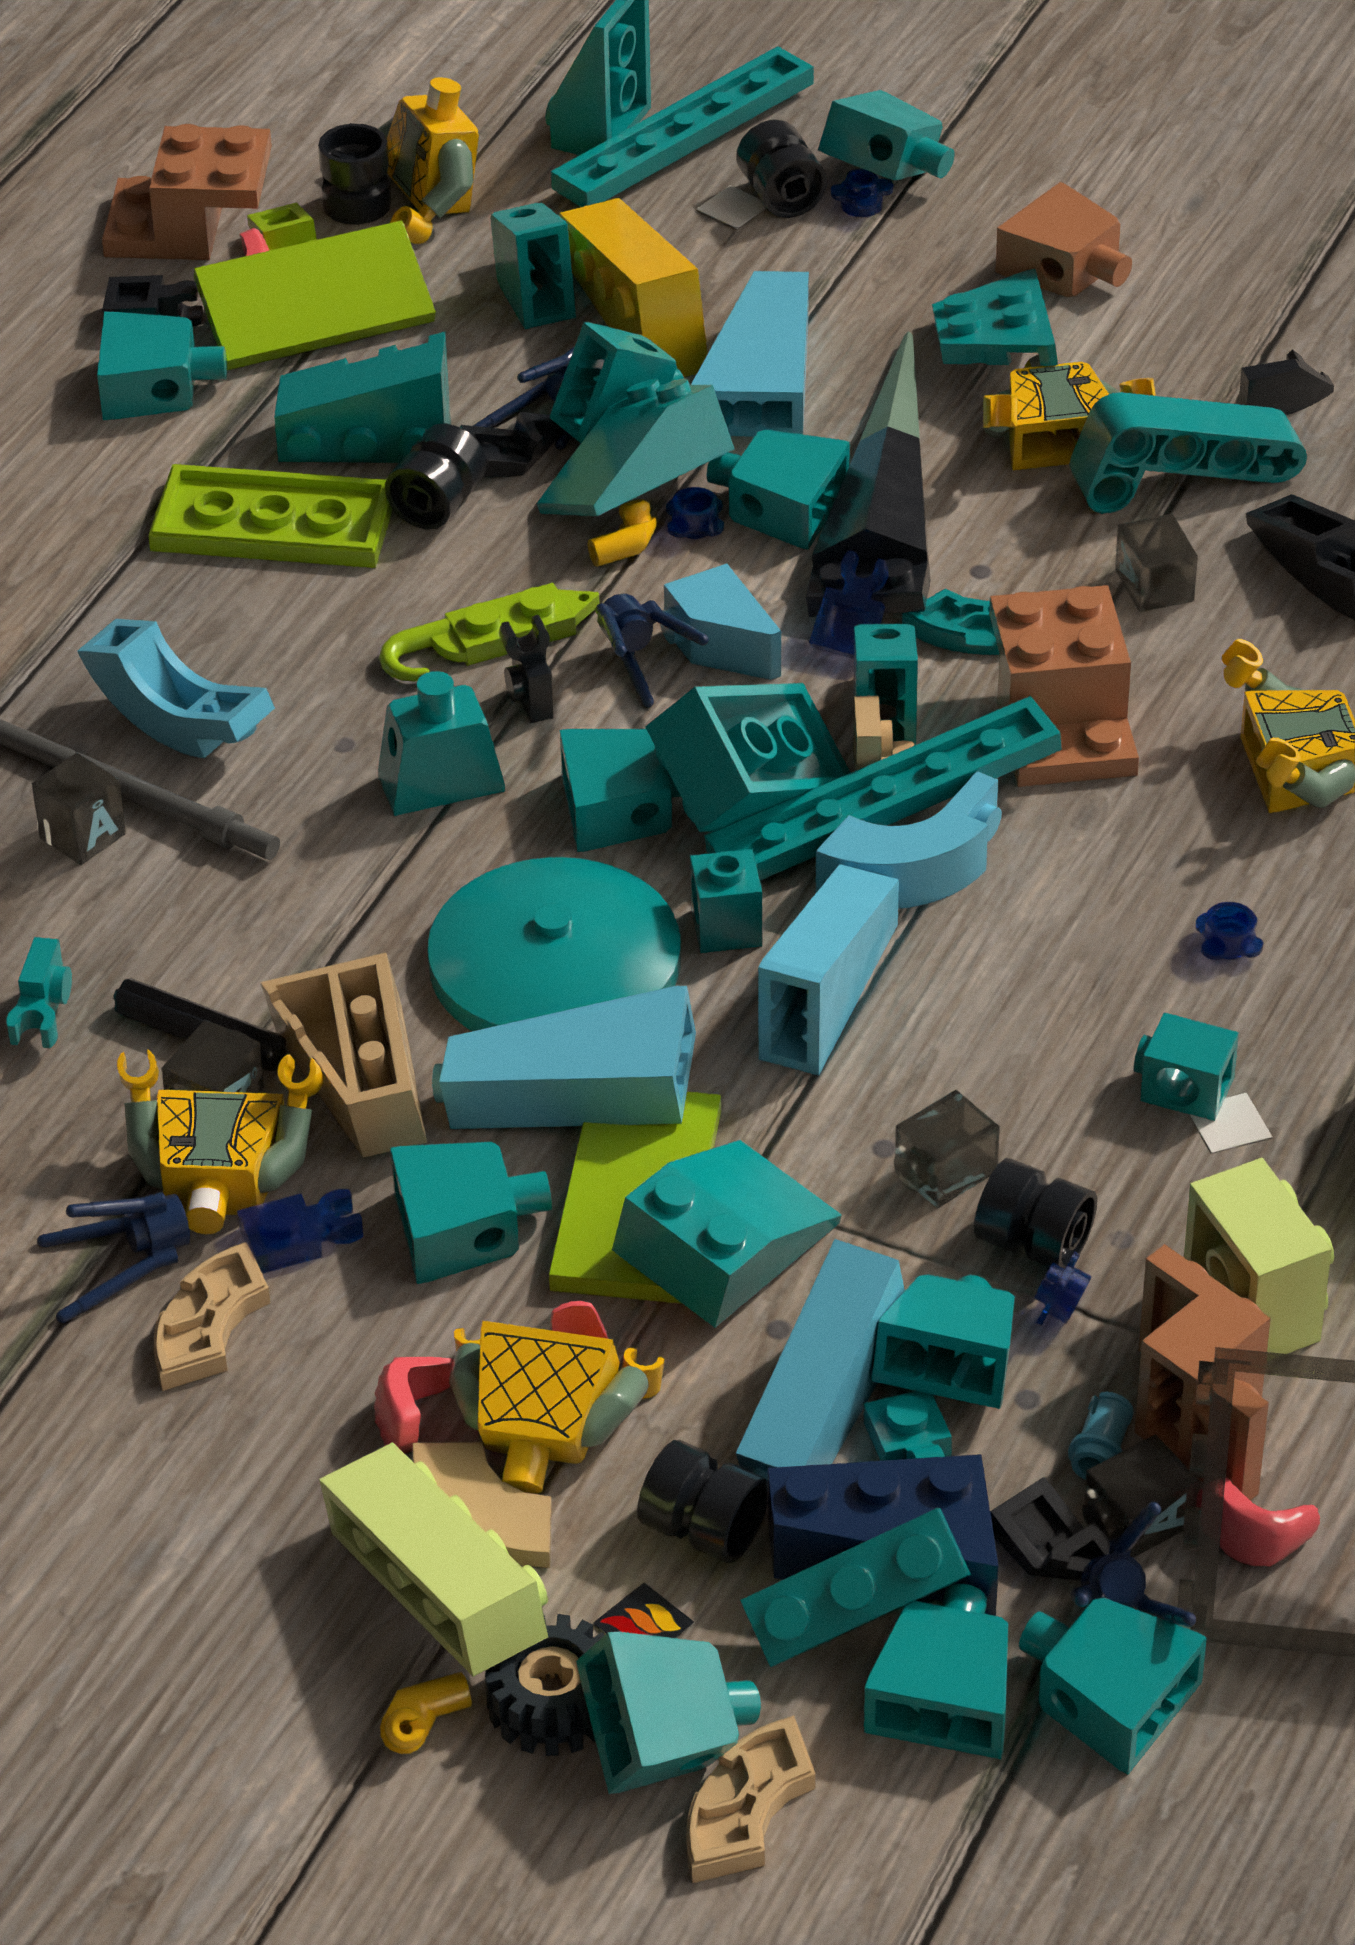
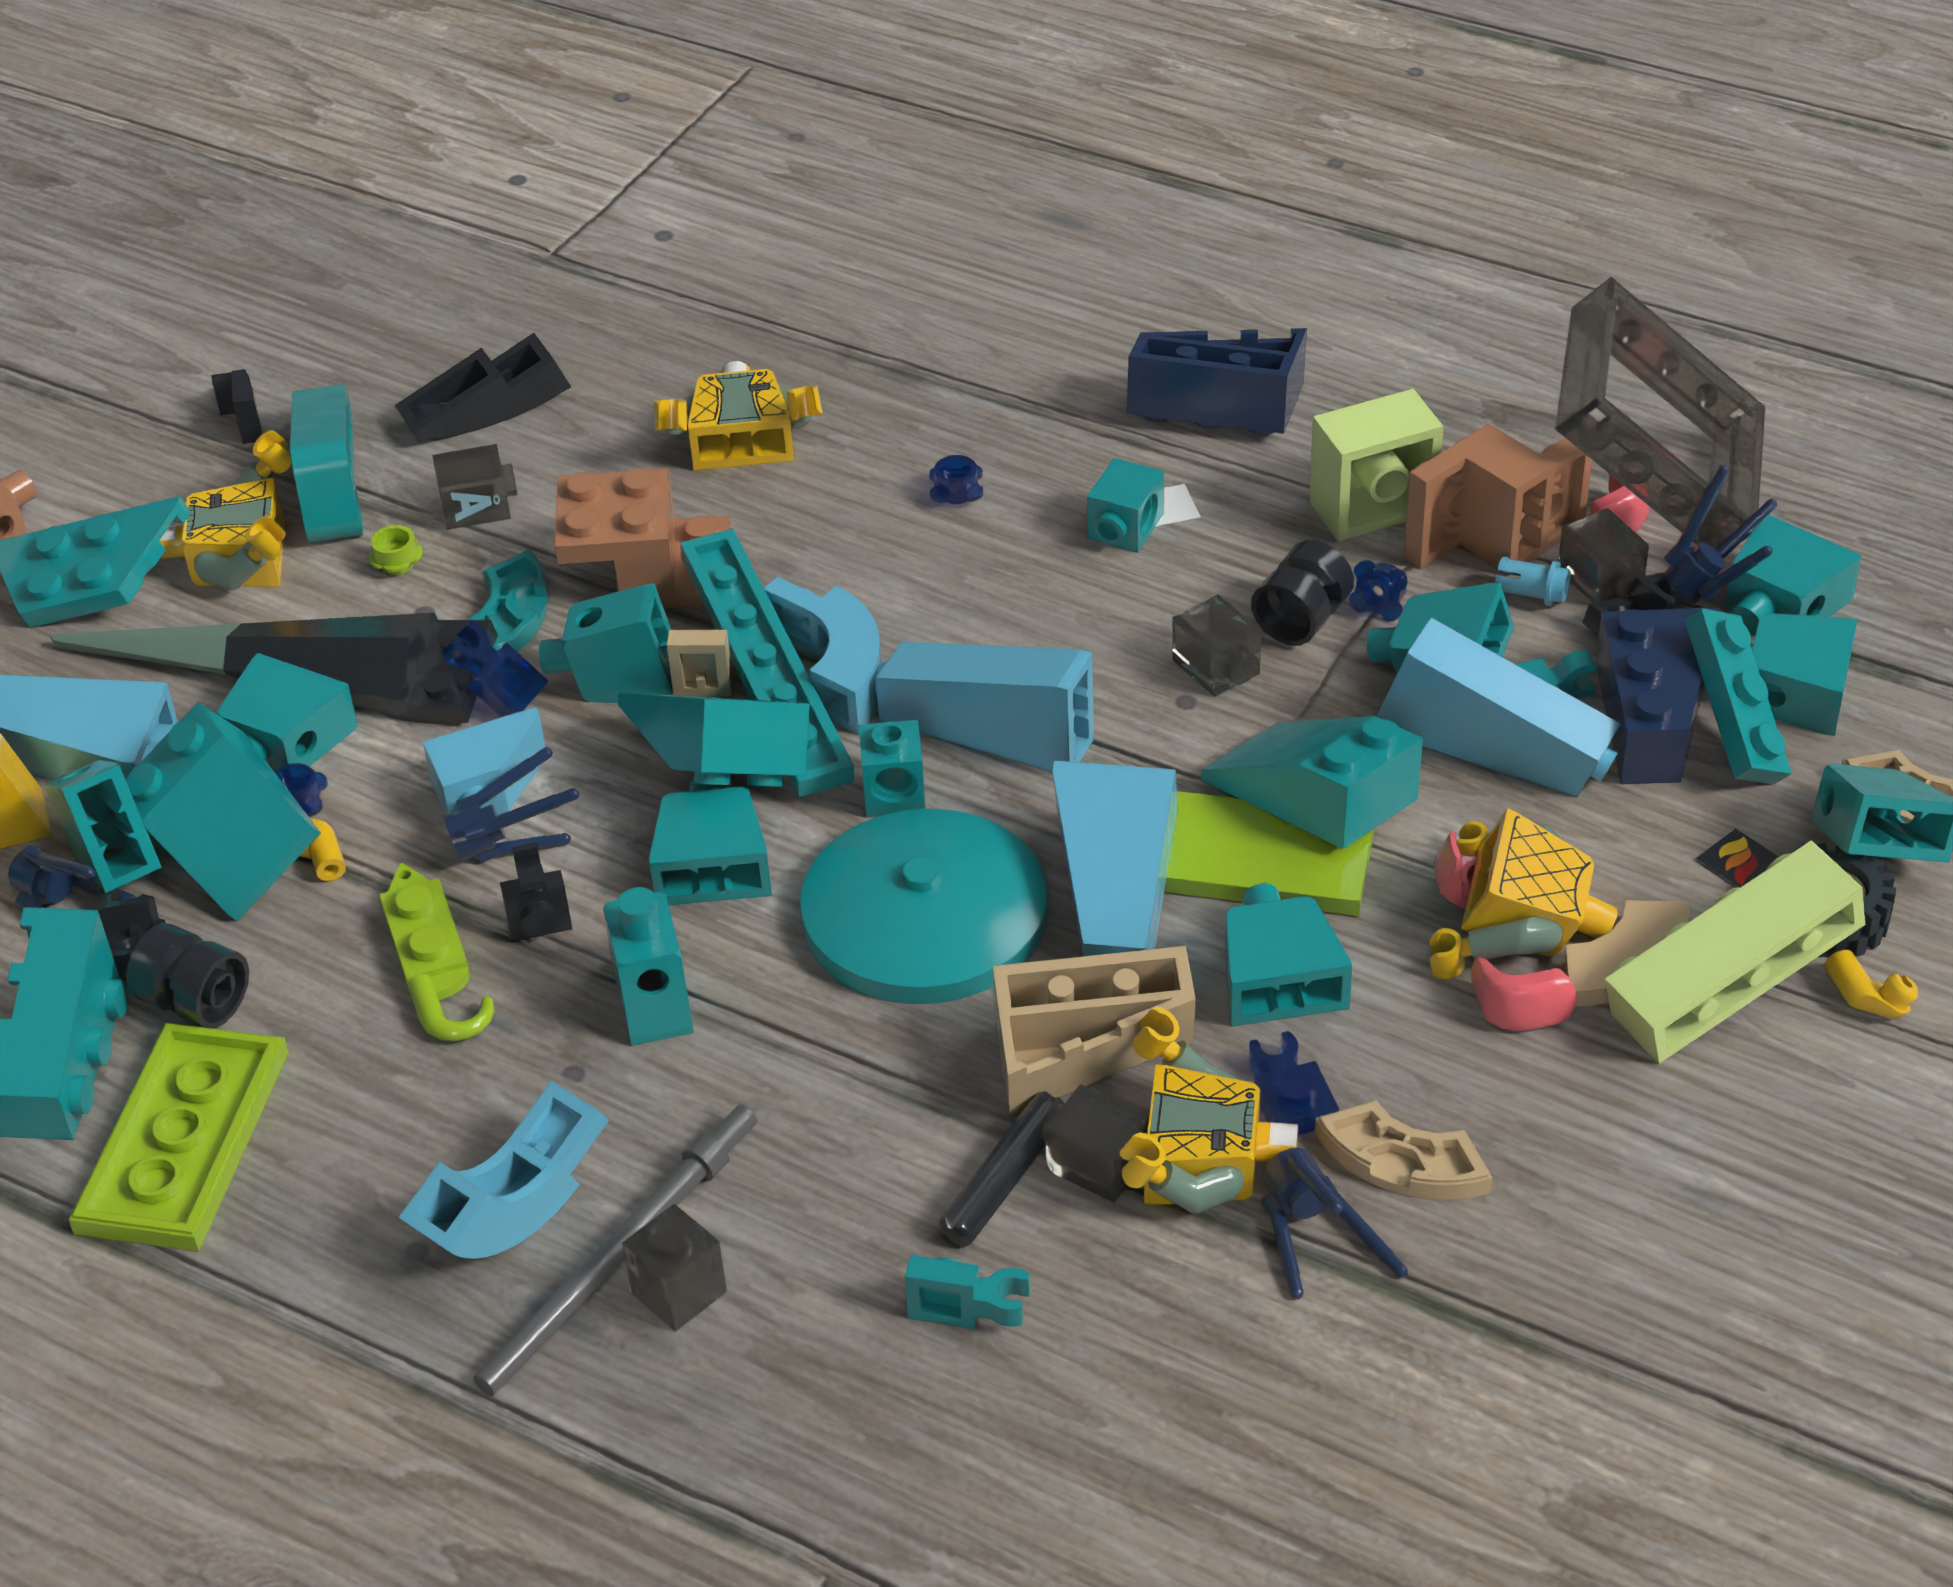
camera: 85 degrees left, 0 degrees up
(694, 1497) = (1636, 795): black wheel -> none
(1056, 528) = (394, 549): none -> lime plate

